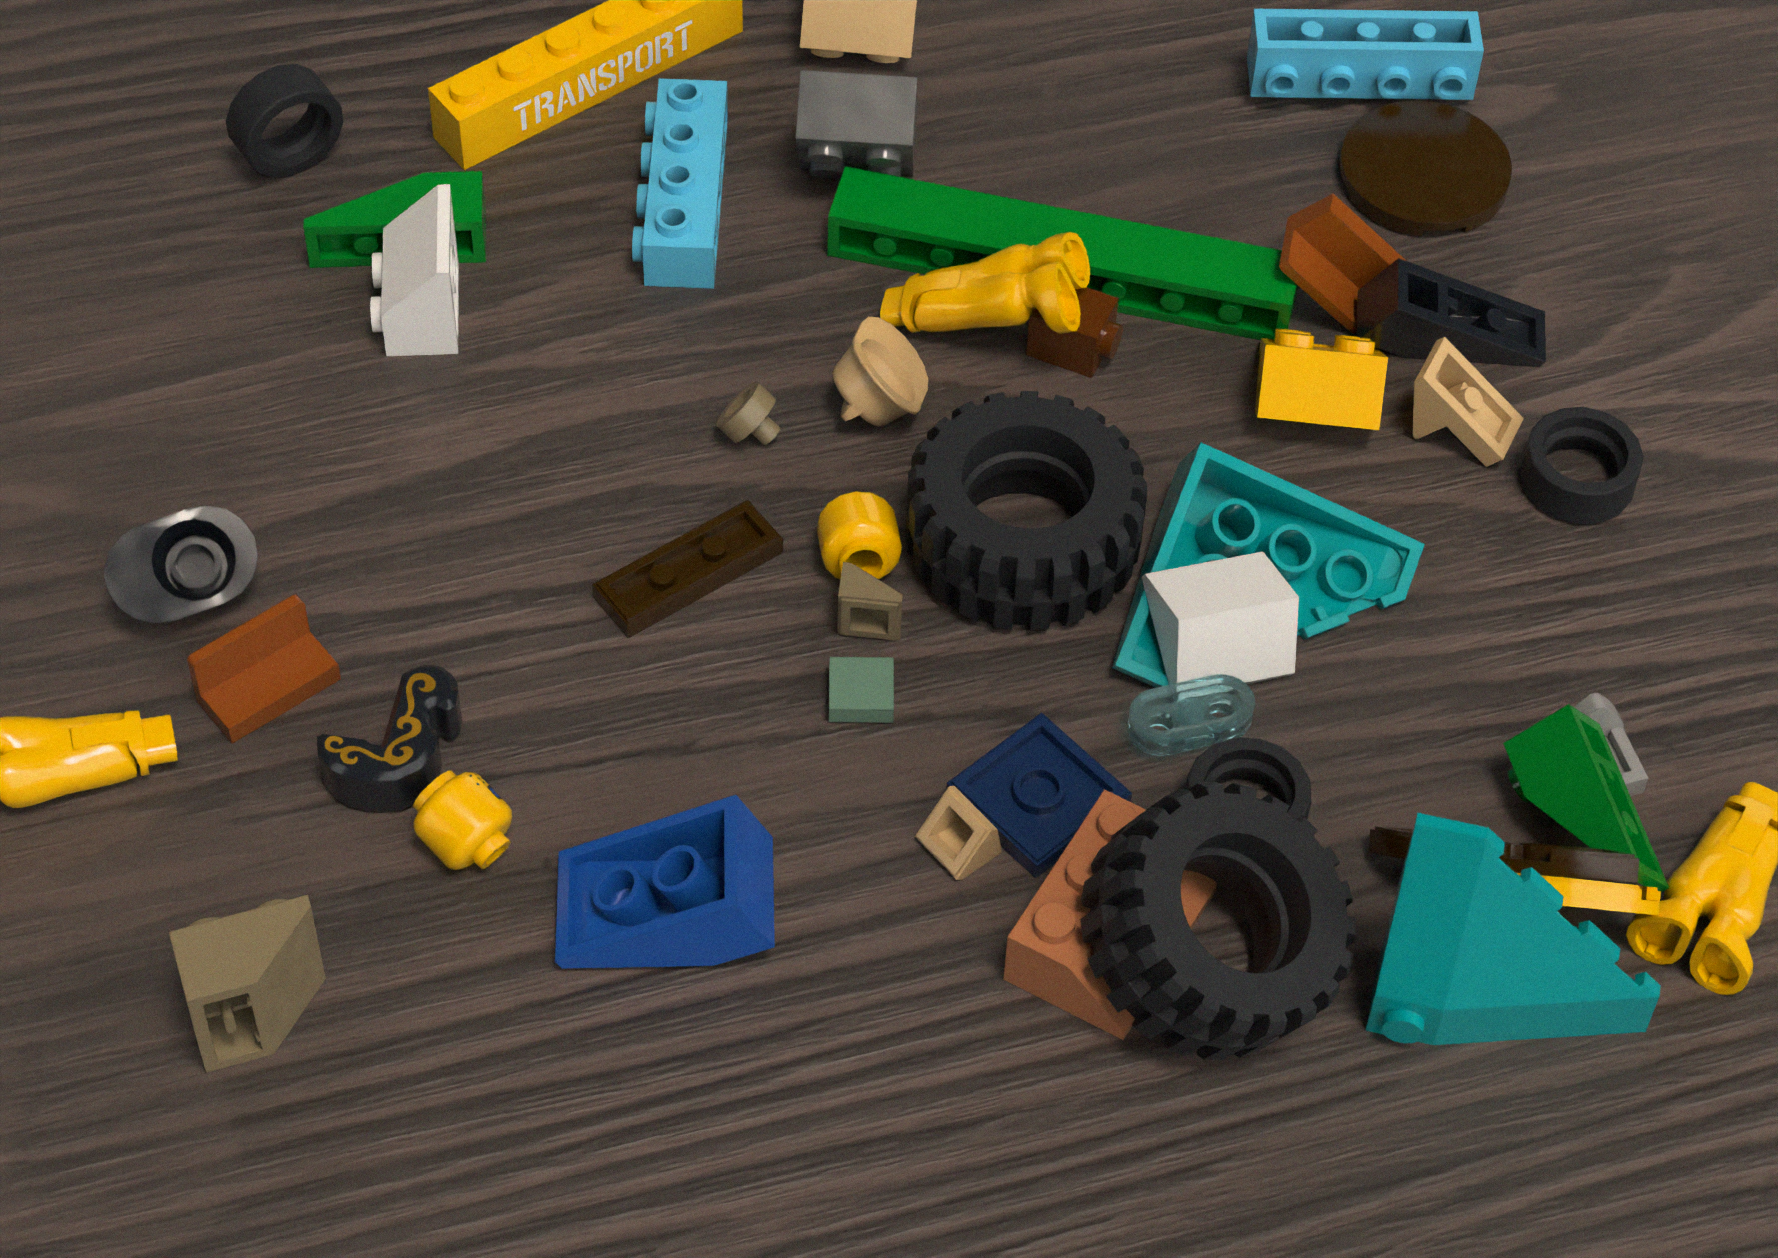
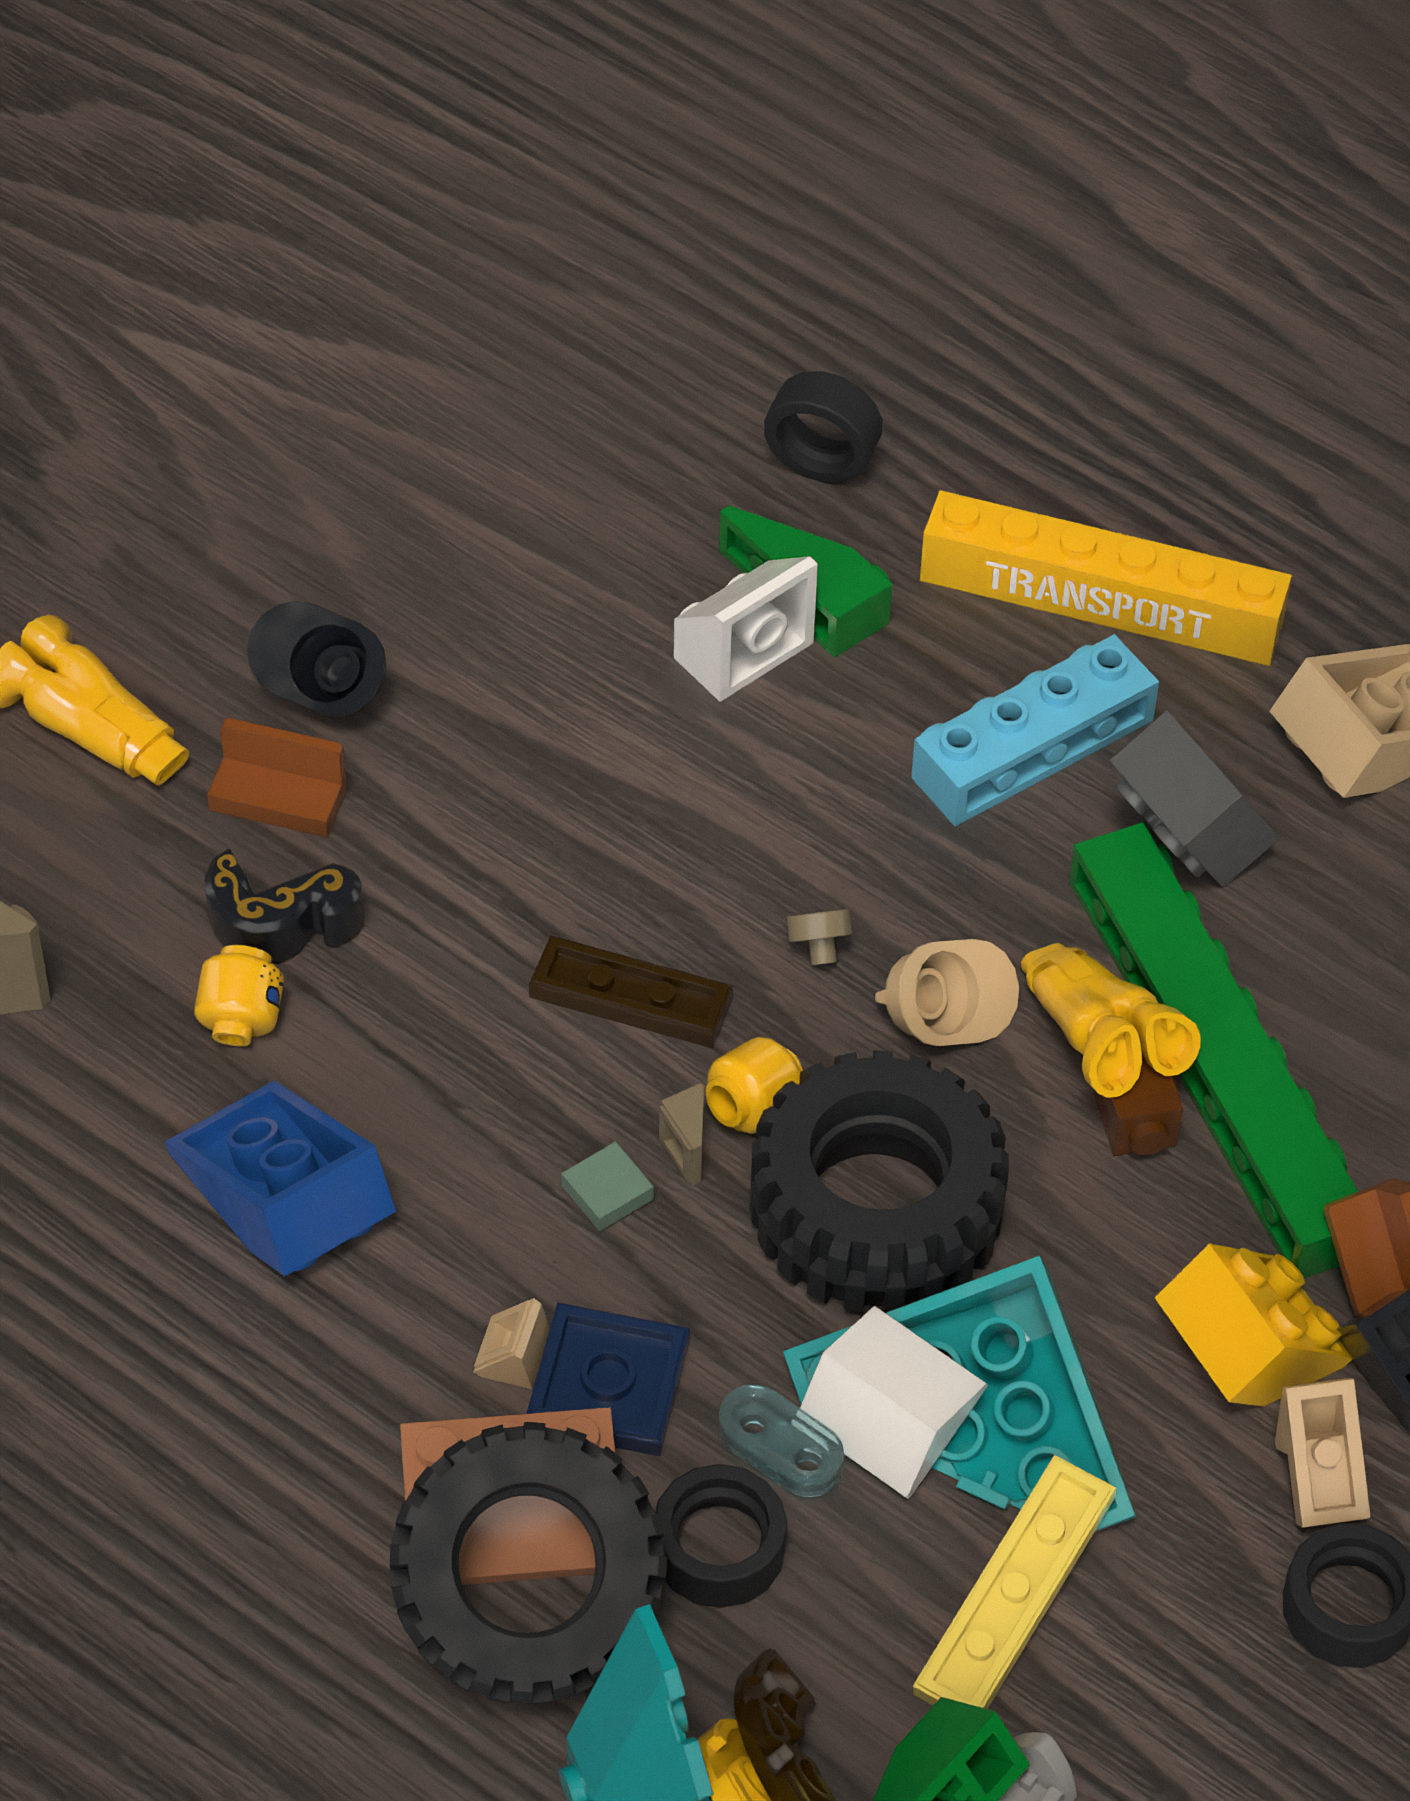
camera: 55 degrees right, 0 degrees up
(1433, 651) = (1016, 1587): none -> light yellow tile

